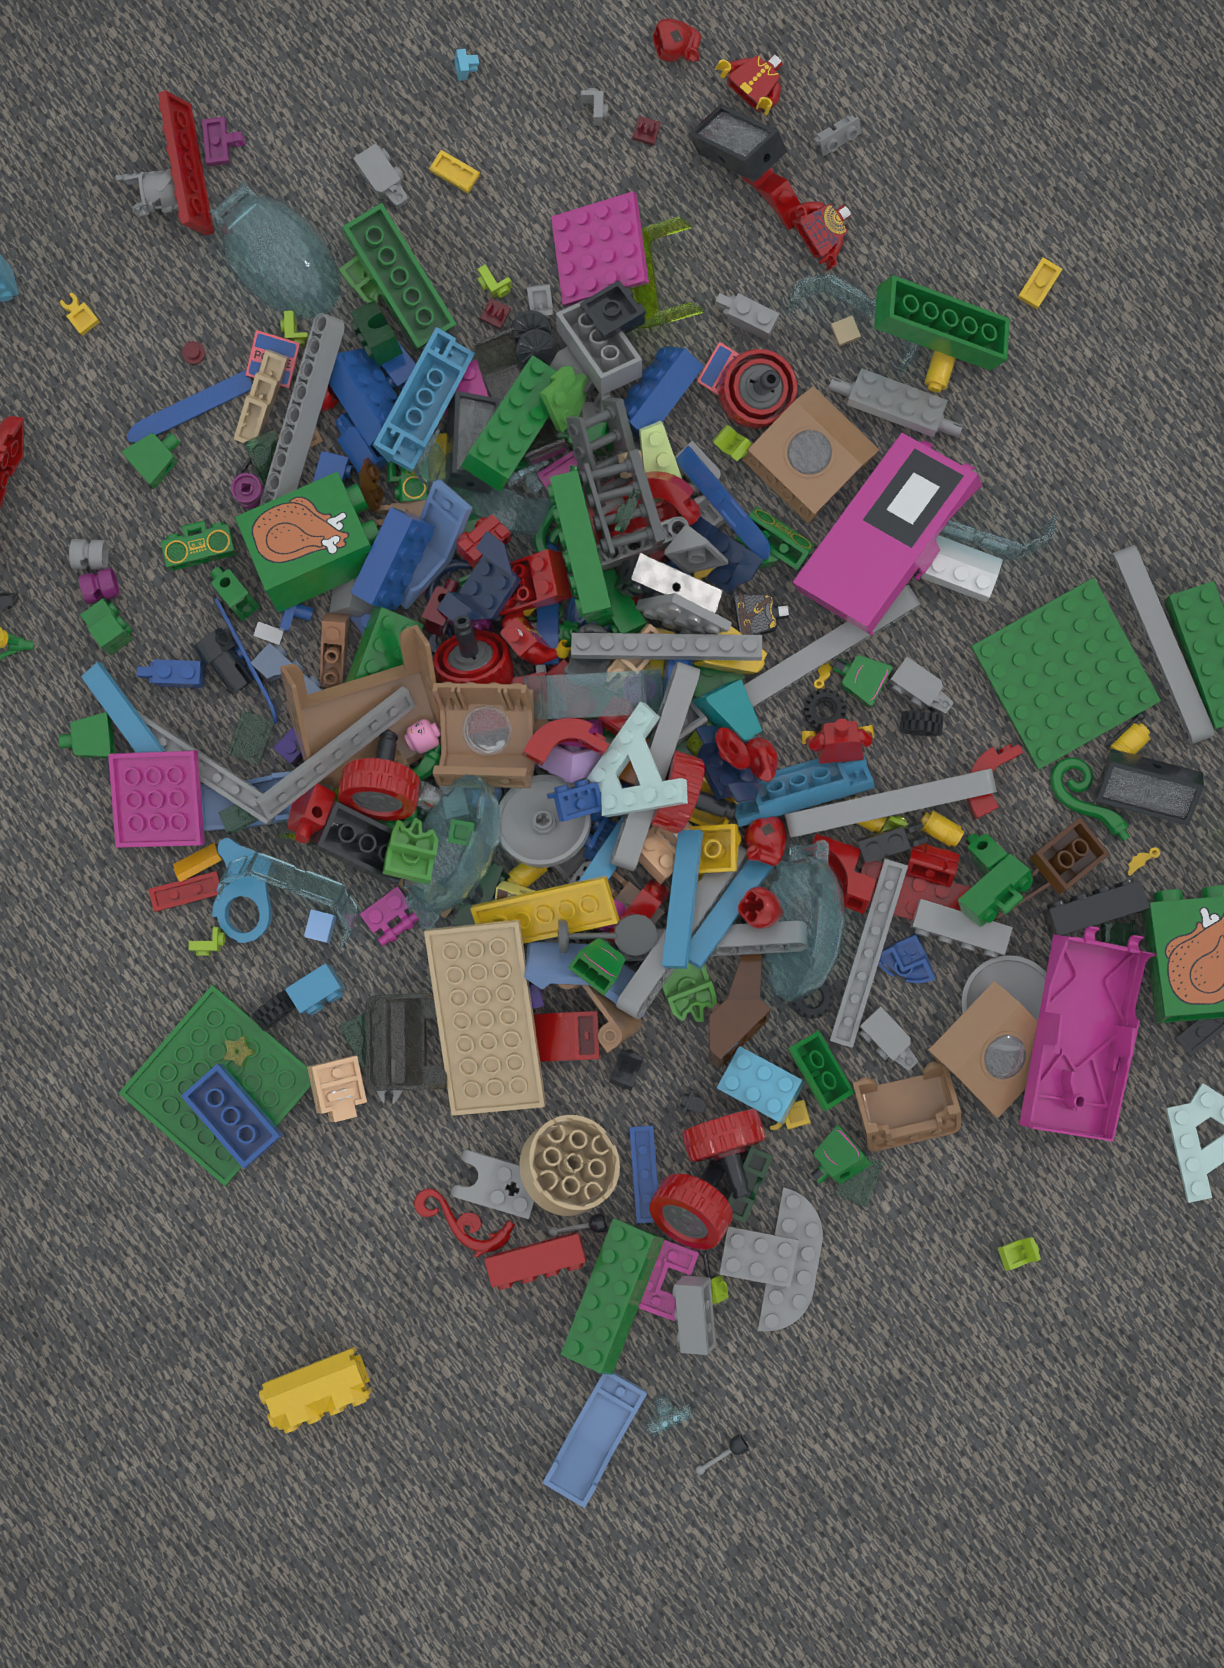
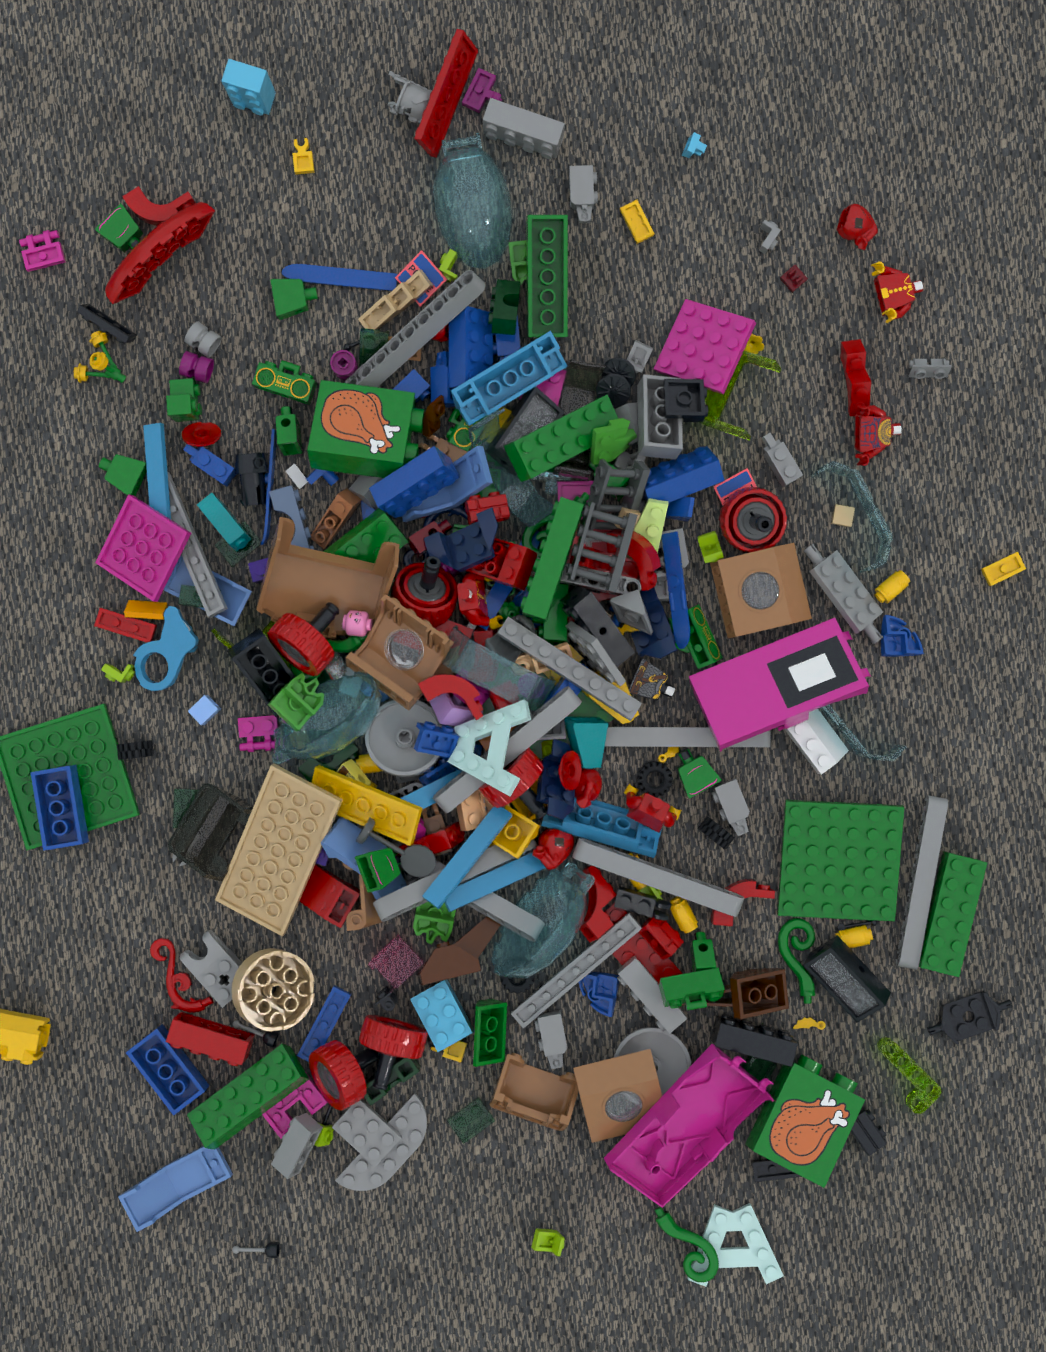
camera: 20 degrees right, 5 degrees up
(145, 649) = (201, 434): none -> red dish
(193, 352) = (367, 237): dark red plate -> none
(223, 721) = (224, 521): none -> teal slope
(239, 1057) = (92, 757): clear yellow plate -> none
(284, 150) = (523, 128): none -> light grey brick
(294, 880) = (203, 670): clear light blue windscreen -> none
(310, 812) = (242, 629): red torso -> none
(316, 989) = (168, 754): dark azure brick -> none
(335, 753) = (284, 600): light grey plate -> none
(337, 1087) = (146, 831): light nougat piece -> none
(460, 831) = (342, 708): green plate -> none
(488, 282) = (610, 318): lime bracket -> none
(495, 313) = (601, 345): dark red tile -> none
(511, 1321) = (167, 1070): none -> blue brick
(626, 511) = (599, 557): clear green plate -> none
(626, 1069) = (356, 944): black bracket -> none
(648, 216) = (754, 344): none -> yellow plant
(668, 1416) = (236, 1200): clear light blue tile -> none
(678, 423) = (680, 509): none -> blue slope
(679, 1061) = (396, 961): none -> clear pink bracket
(738, 142) = (853, 331): black brick -> none
(760, 908) = (518, 895): red piece -> none
(839, 1157) = (465, 1099): green torso -> none
(941, 323) = (914, 557): green brick -> none
(981, 413) = (898, 639): none -> blue brick
(1138, 1159) = (669, 1226): none -> green plant

